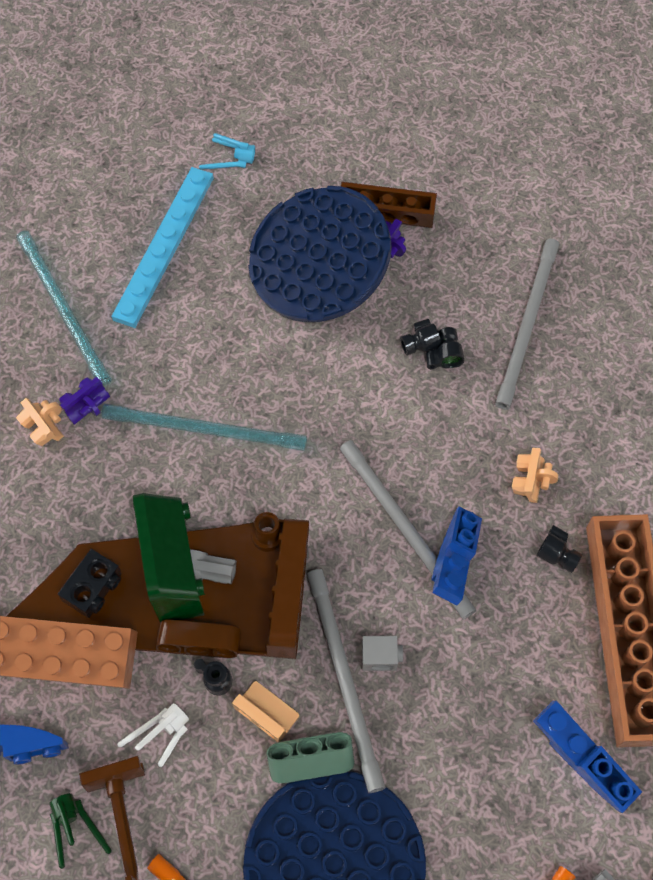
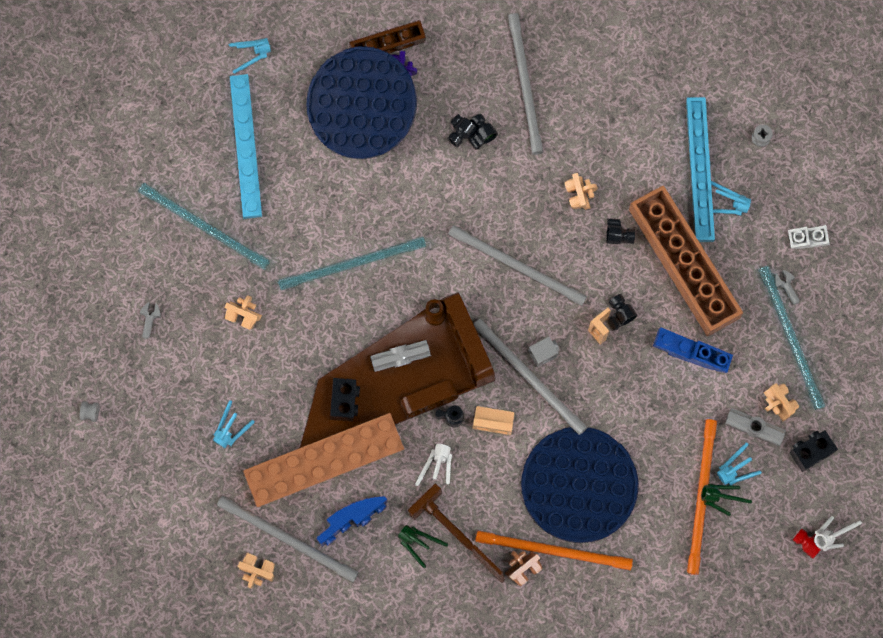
camera: 30 degrees left, 10 degrees up
(84, 400) = (264, 285): dark purple hips -> none
(167, 556) = (386, 357): dark green windscreen -> none
(310, 757) = (535, 432): sand green beam -> none
(455, 556) = (557, 267): blue slope -> none
(467, 656) = (597, 328): none -> light nougat panel
(514, 657) = (624, 312): none -> black piece

